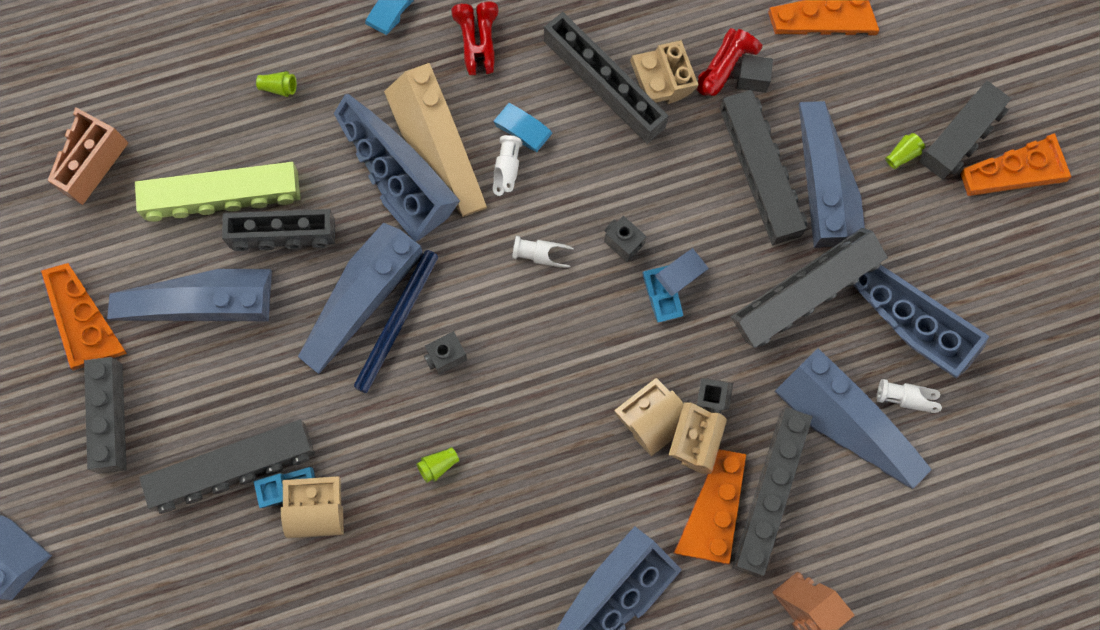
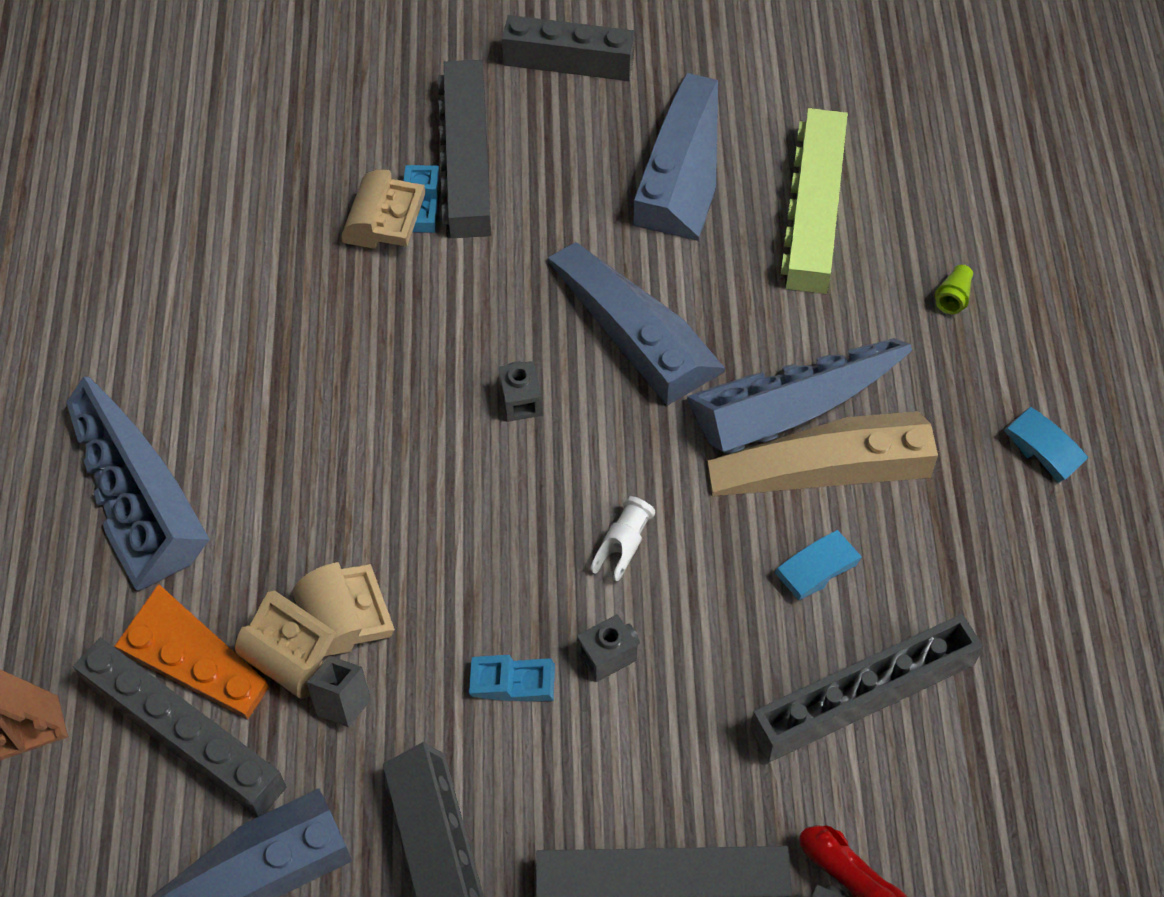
camera: 110 degrees right, 15 degrees down
(78, 319) = (688, 46): orange wing -> none
(86, 156) = (895, 77): nougat wedge -> none
(278, 229) = (743, 245): dark grey brick -> none
(395, 321) = (587, 353): dark blue axle -> none
(435, 465) = (383, 348): lime cone -> none
(486, 14) = (944, 536): red piece -> none
(506, 164) = (763, 527): white piece -> none
(665, 73) = (855, 775): tan brick -> none
(681, 272) = (530, 705): sand blue slope -> none

